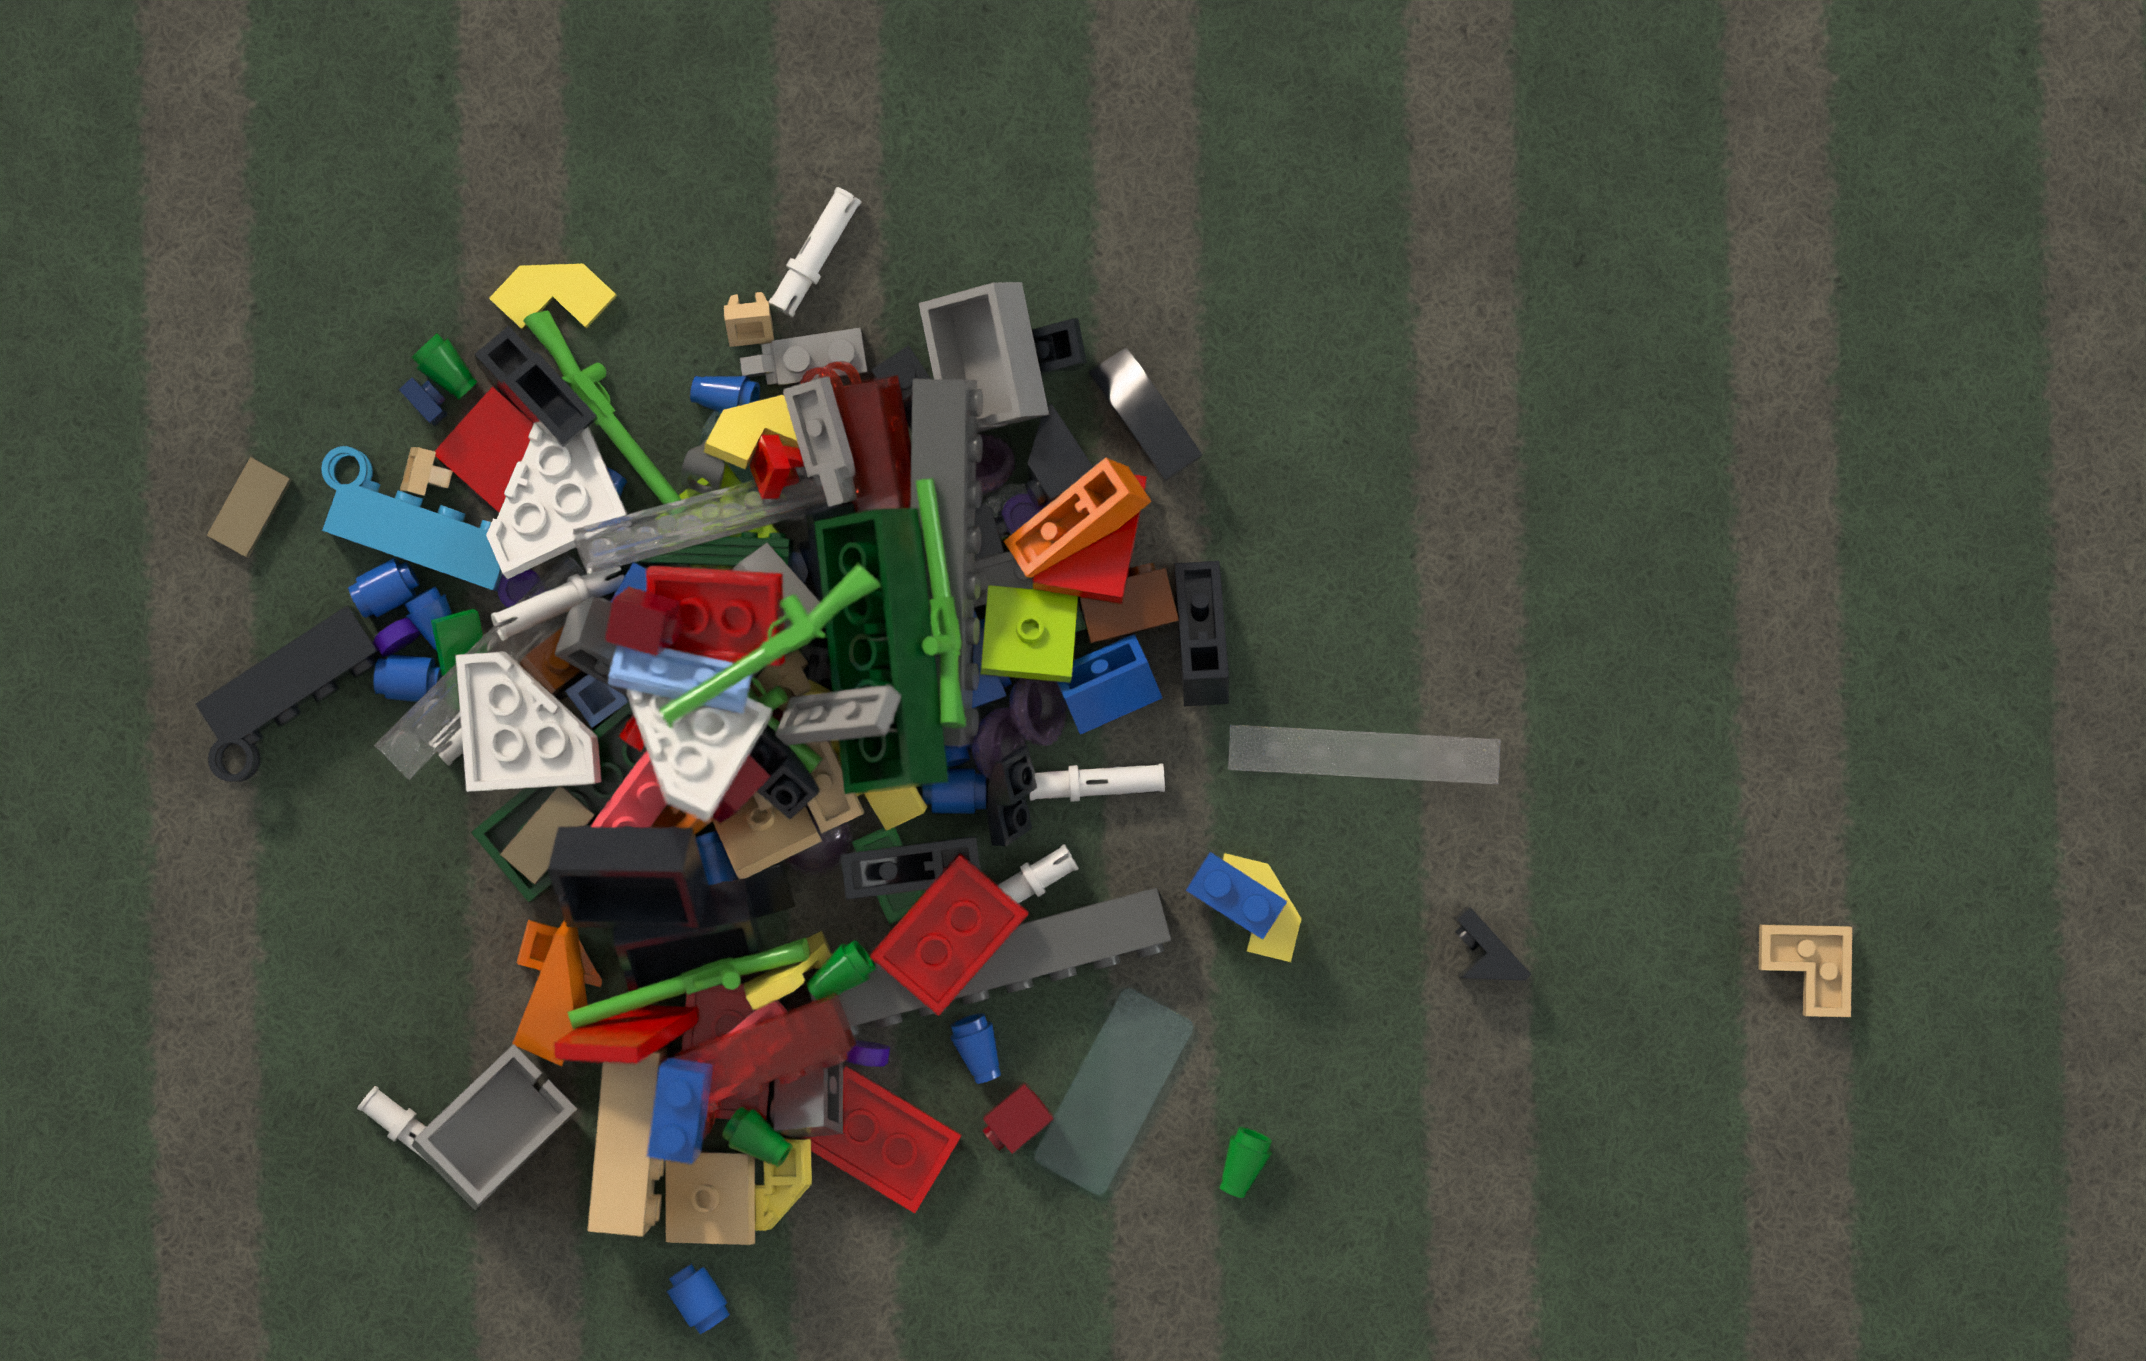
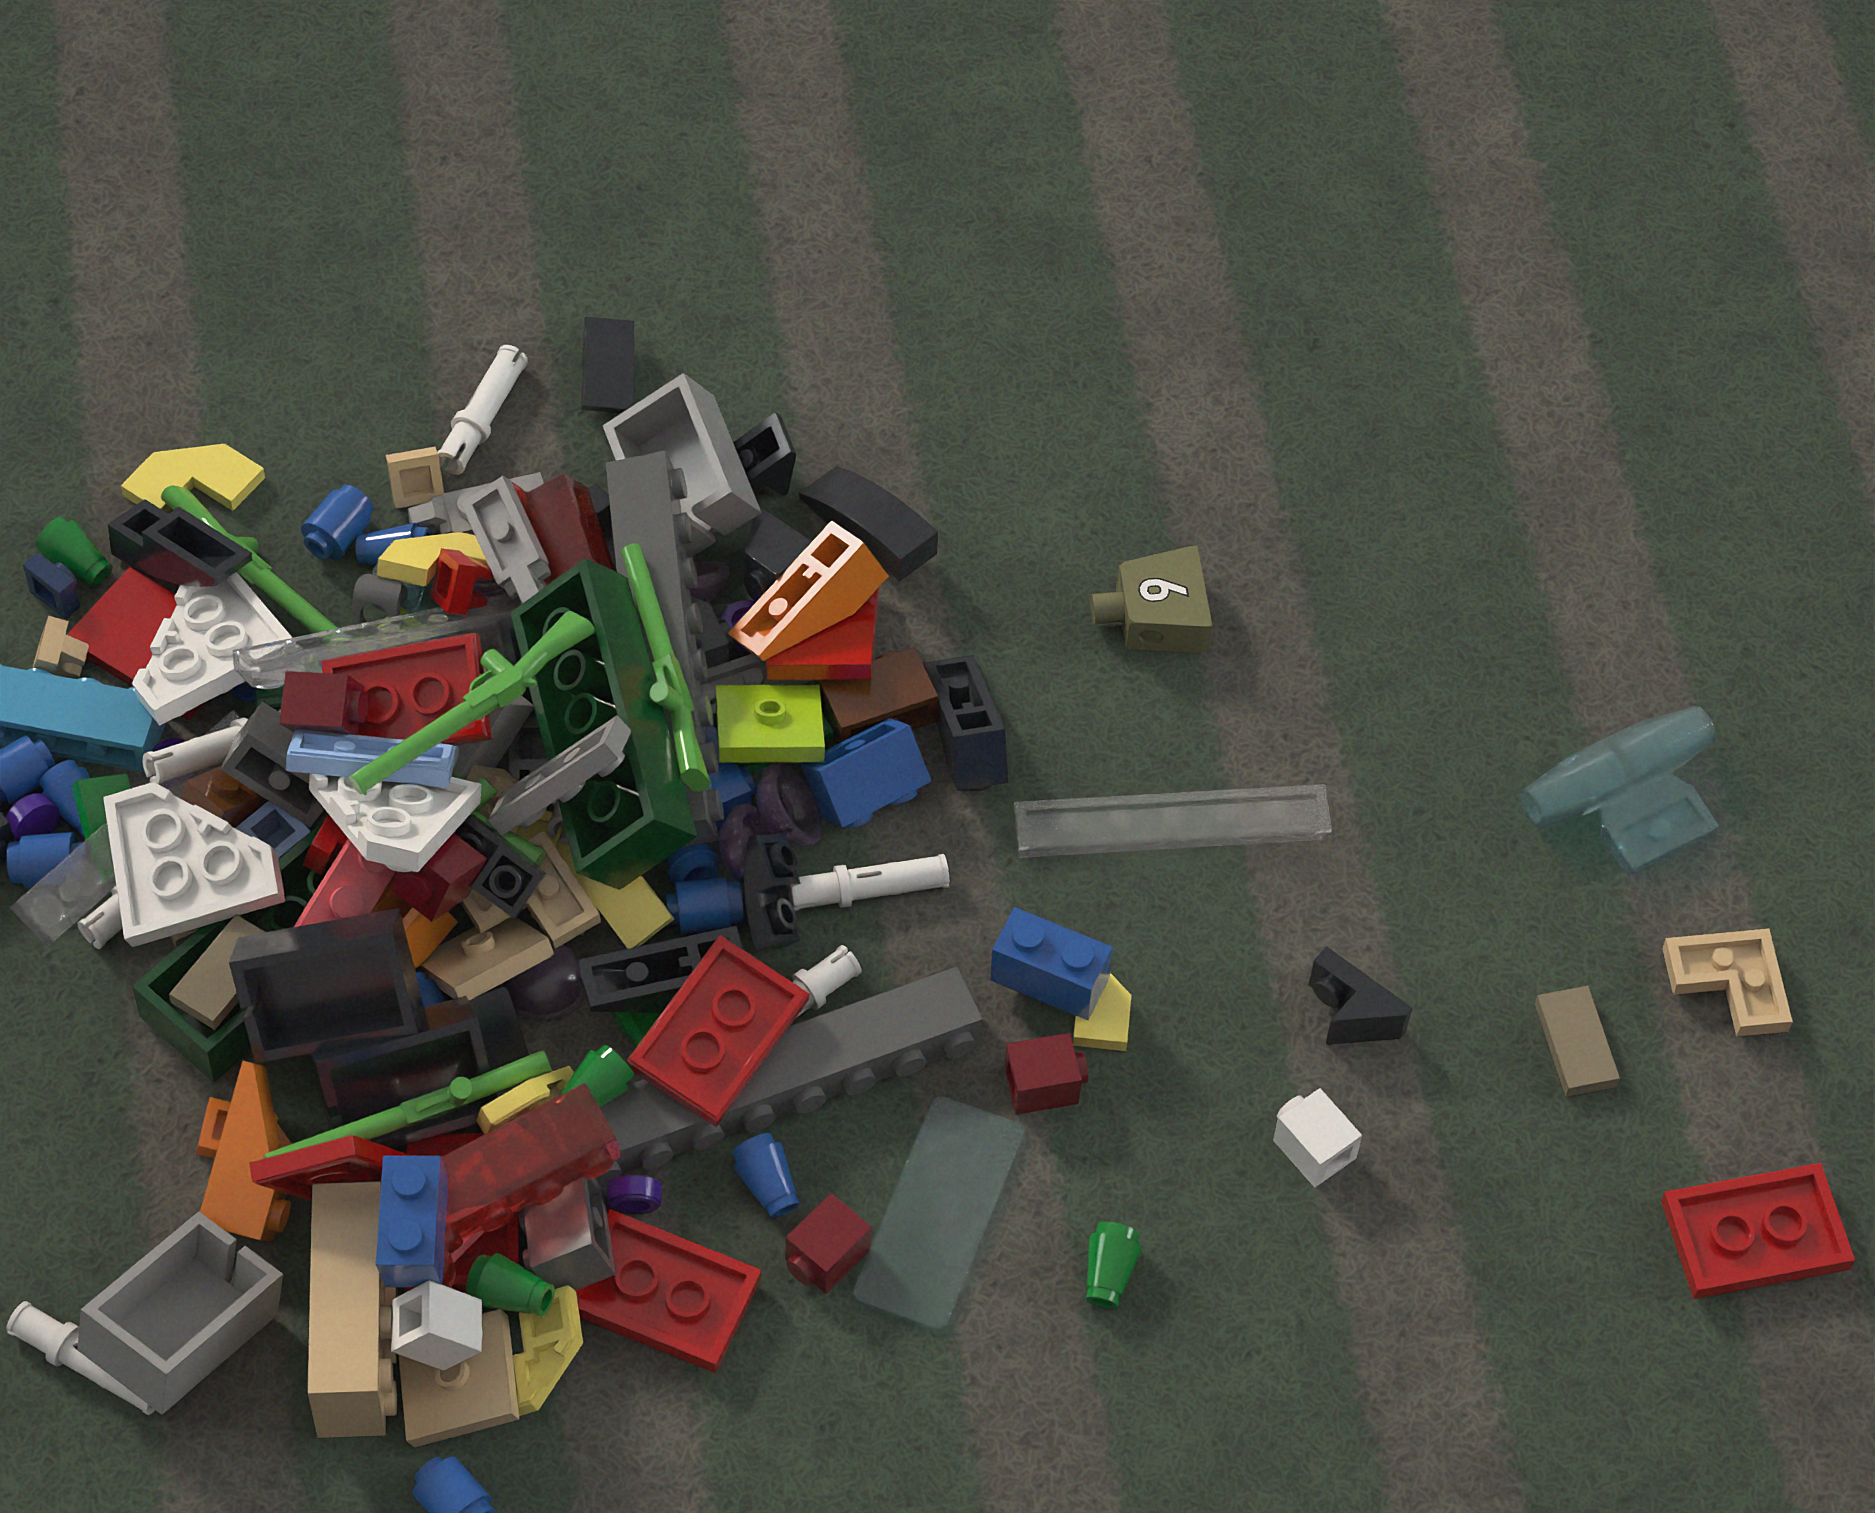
camera: 10 degrees left, 30 degrees down
(676, 364) = (337, 522): none -> blue brick
(701, 1182) = (436, 1325): none -> white brick
(932, 218) = (607, 365): none -> black slope
(1218, 985) = (1044, 1073): none -> dark red brick
(1389, 535) = (1159, 603): none -> olive torso
(1431, 1070) = (1316, 1136): none -> white brick
(1667, 1003) = (1577, 1041): none -> dark tan tile
(1765, 772) = (1631, 784): none -> clear light blue plate
(1777, 1198) = (1757, 1230): none -> red plate

